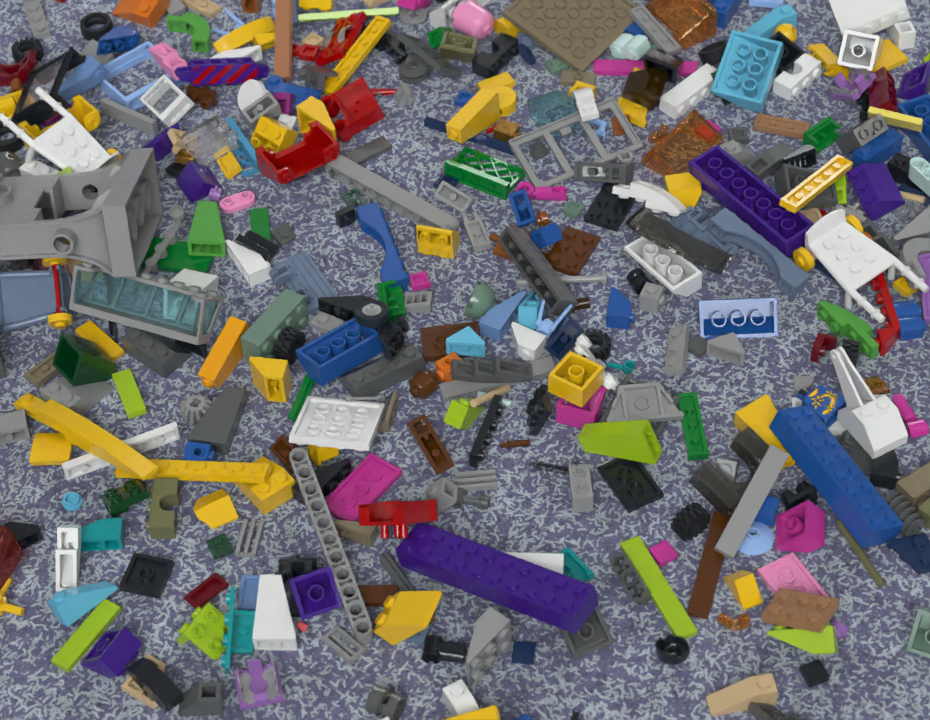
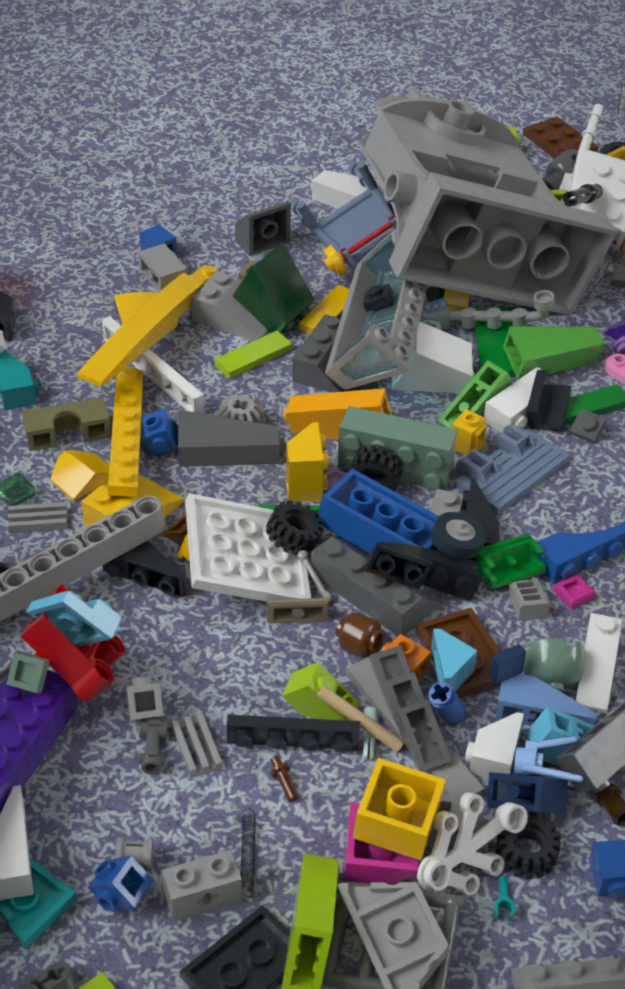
camera: 70 degrees right, 5 degrees down
(72, 501) = (66, 347): medium azure plate -> none
(84, 156) = (587, 198): none -> black pin
(118, 499) = (66, 383): dark green plate -> none
(123, 302) = (377, 297): none -> black plate
(236, 281) = (483, 386): none -> bright green slope
(267, 290) = (471, 432): none -> yellow window
(327, 395) = (307, 524): none -> black tyre
(363, 486) = (156, 614): dark pink tile -> none
(397, 493) = (78, 620): none -> medium azure plate
(421, 533) = (27, 672): none -> sand green plate
(429, 444) = (246, 667): reddish brown slope -> none
(467, 274) = (600, 660): none -> white slope
(482, 315) = (507, 664): none -> dark blue tile
(496, 349) = (447, 703): none -> blue piece
(538, 410) = (340, 786): black plate -> none
(547, 517) = (140, 850): none -> light grey bush
(570, 523) = (120, 883): none -> blue brick

